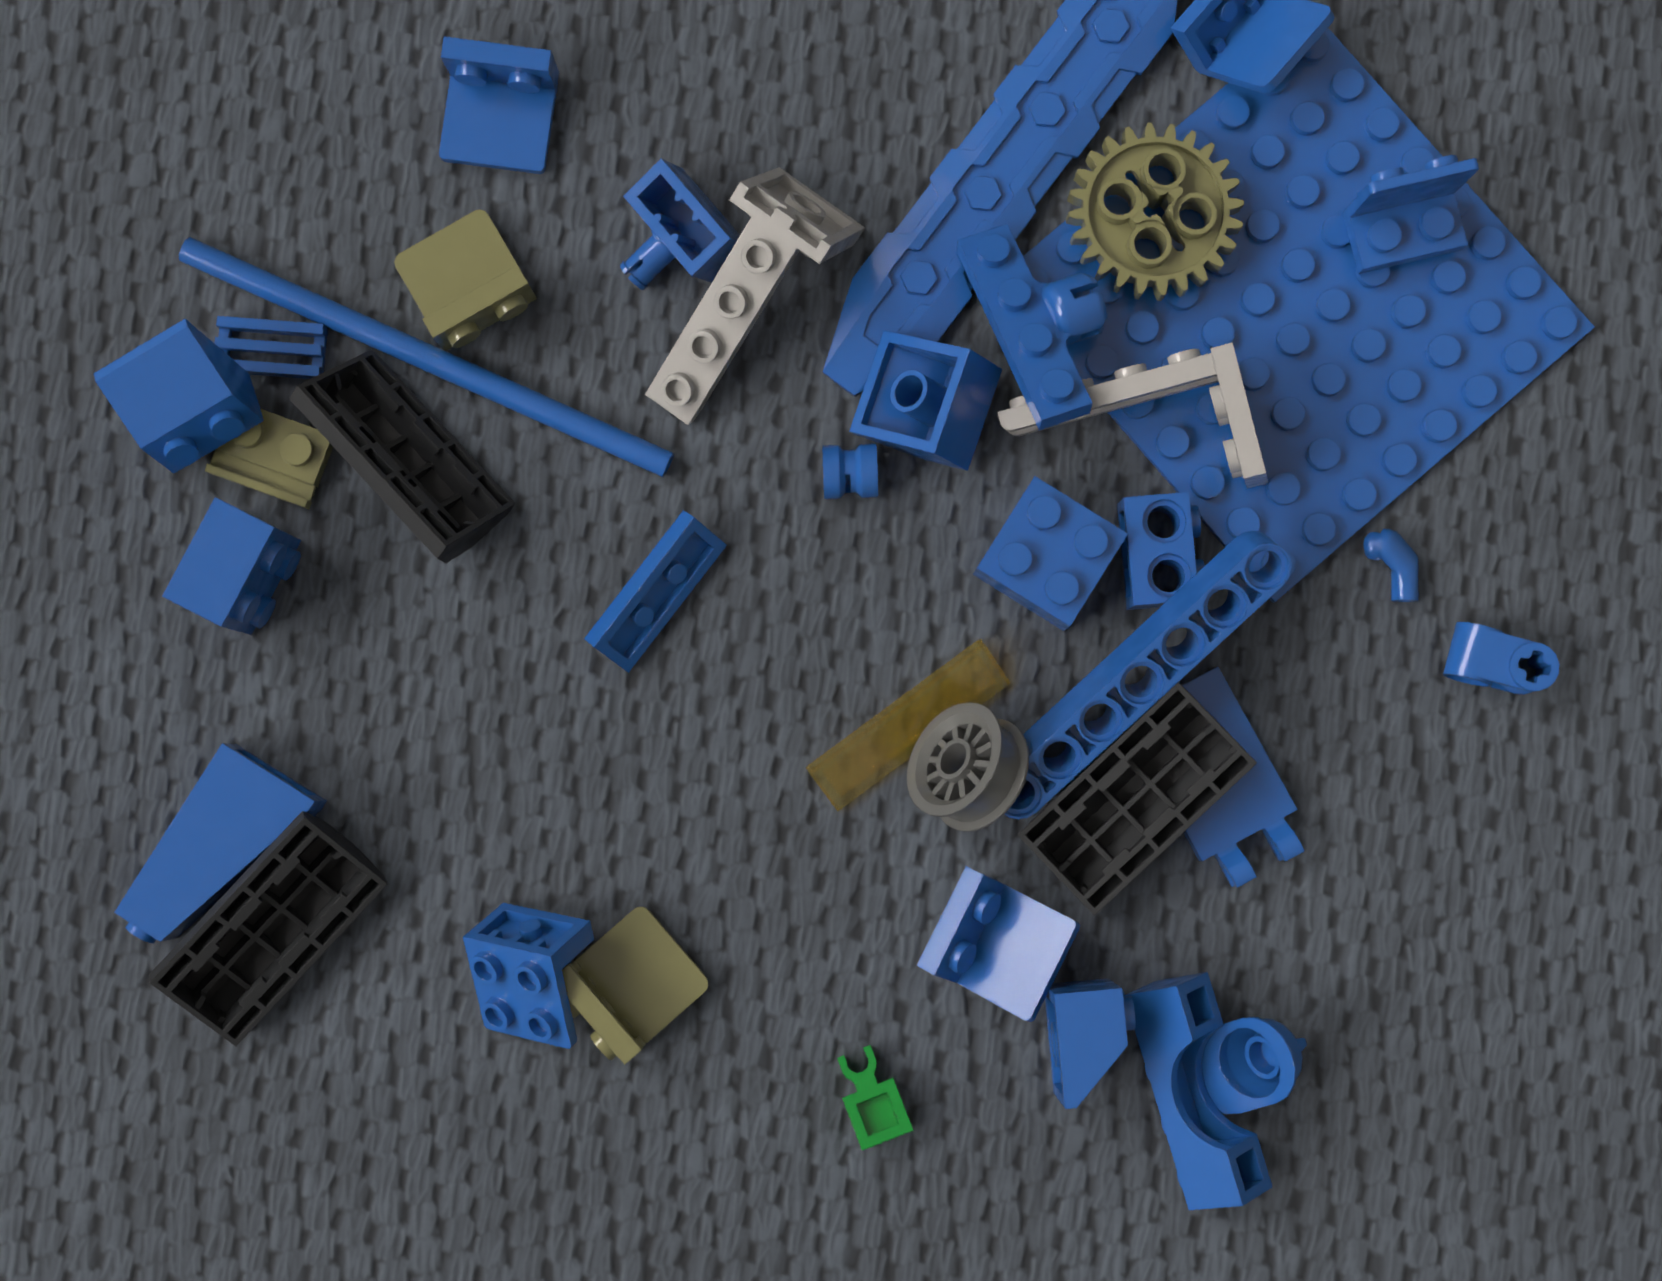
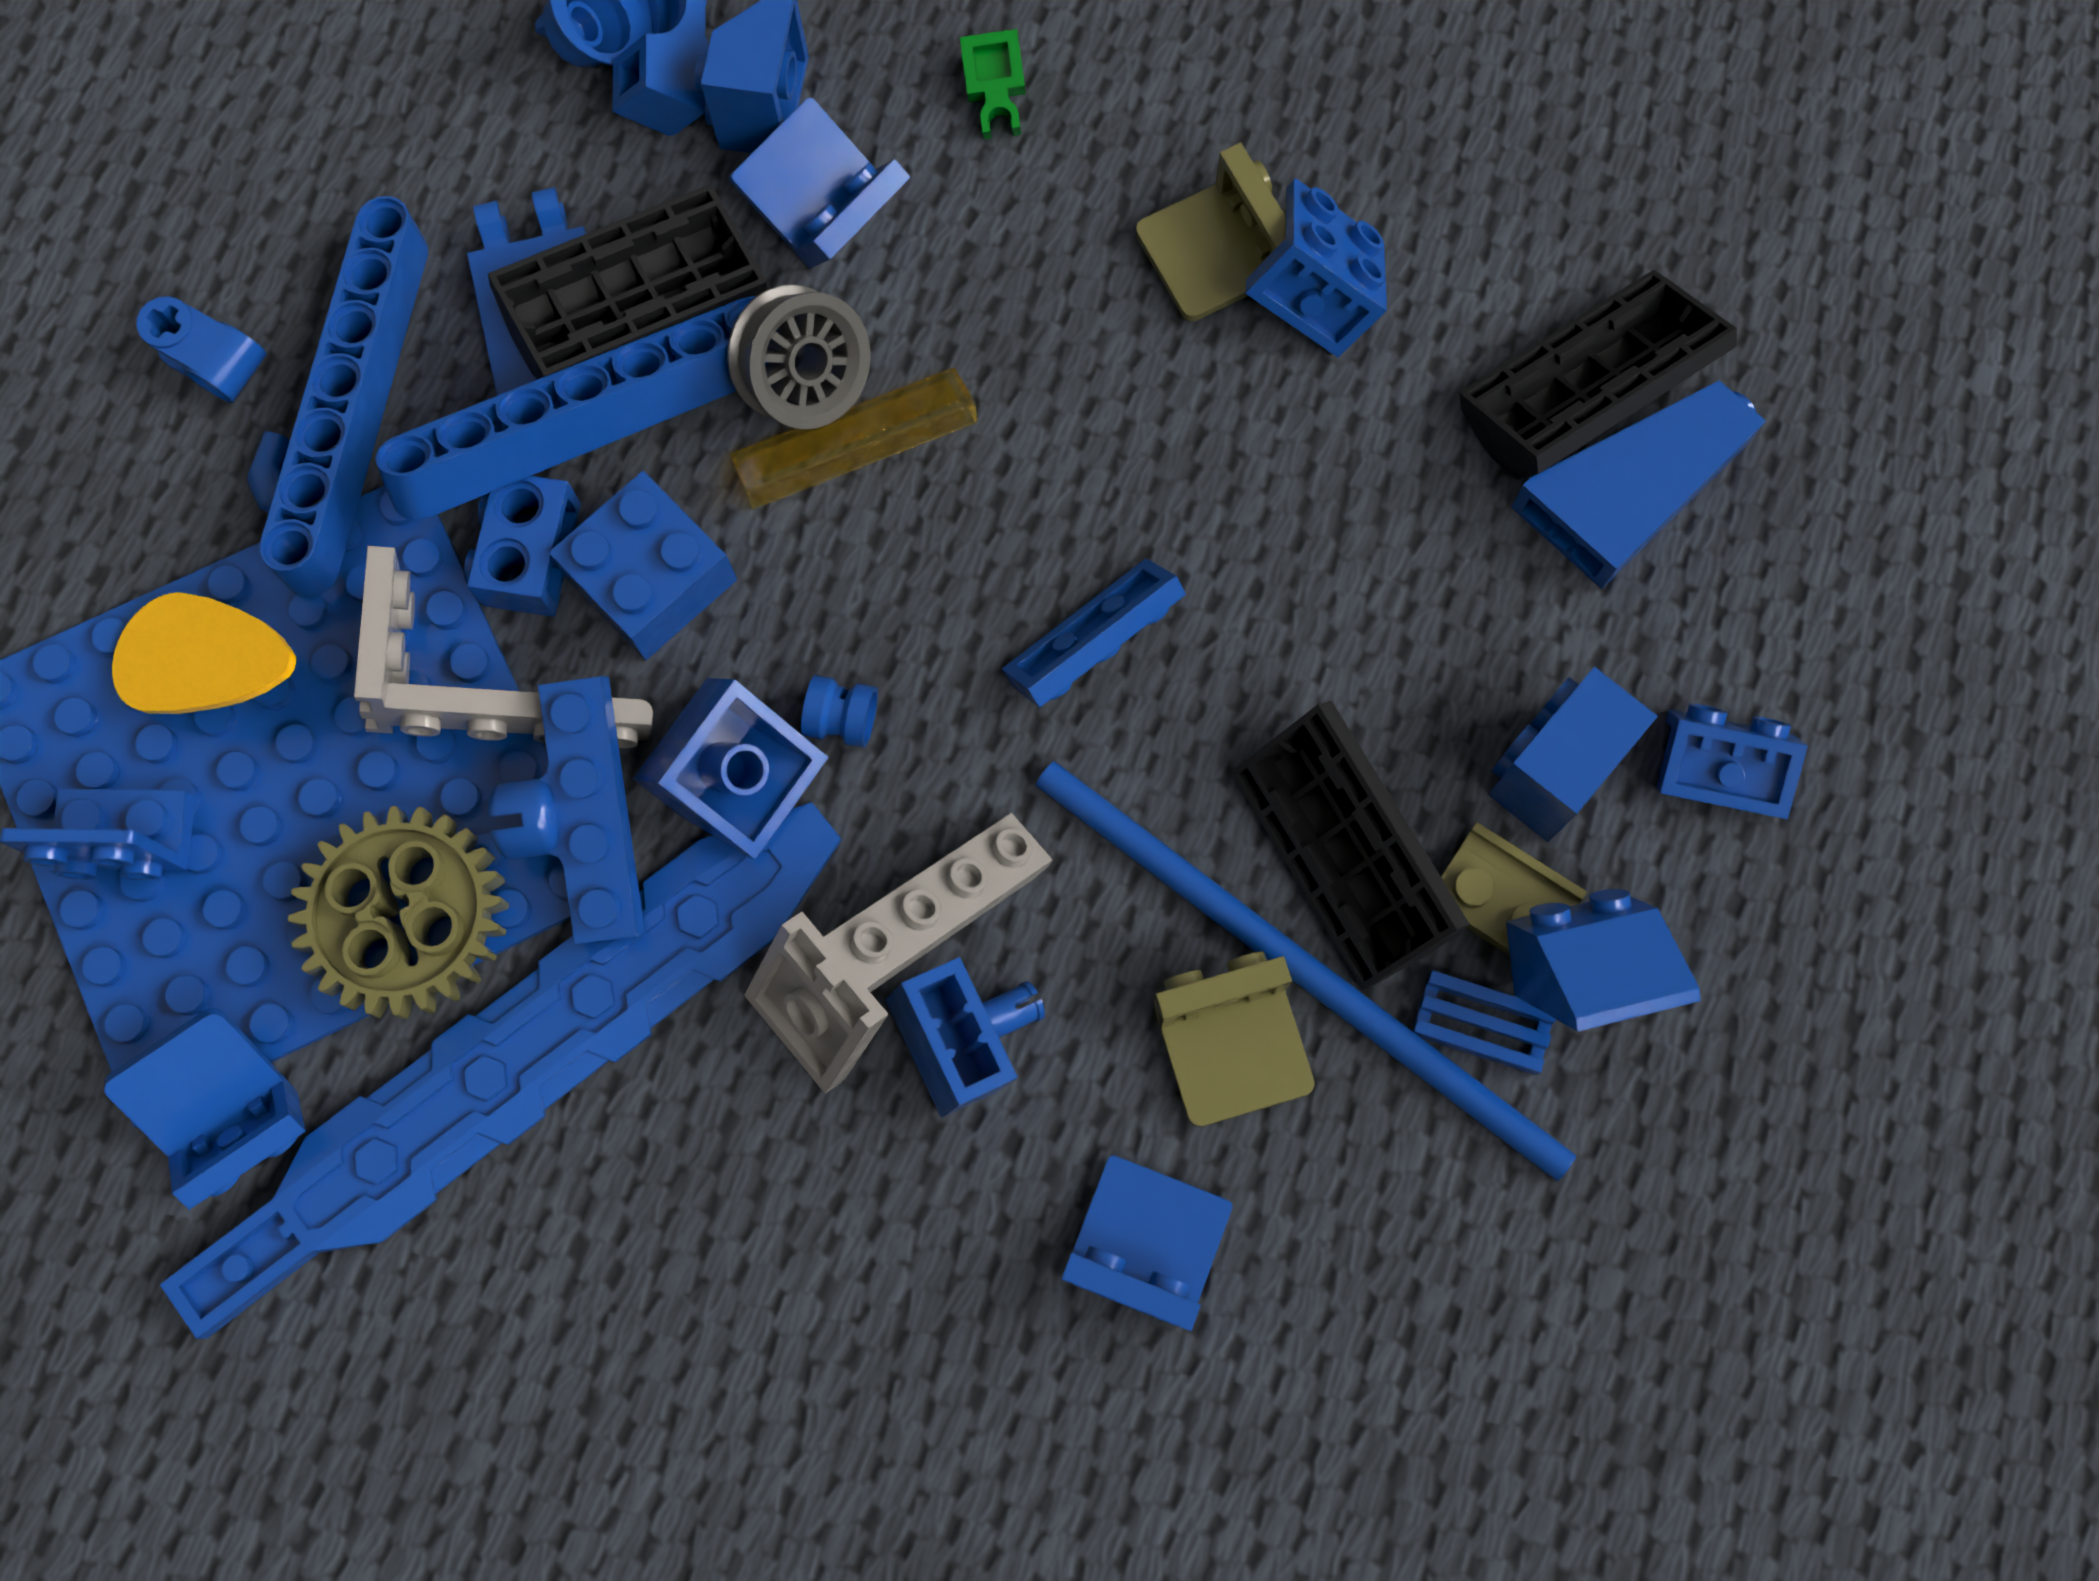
camera: 165 degrees left, 10 degrees down
(103, 610) = (1731, 762): none -> blue bracket
(1371, 666) = (354, 355): none -> blue beam
(1393, 376) = (196, 656): none -> yellow shield

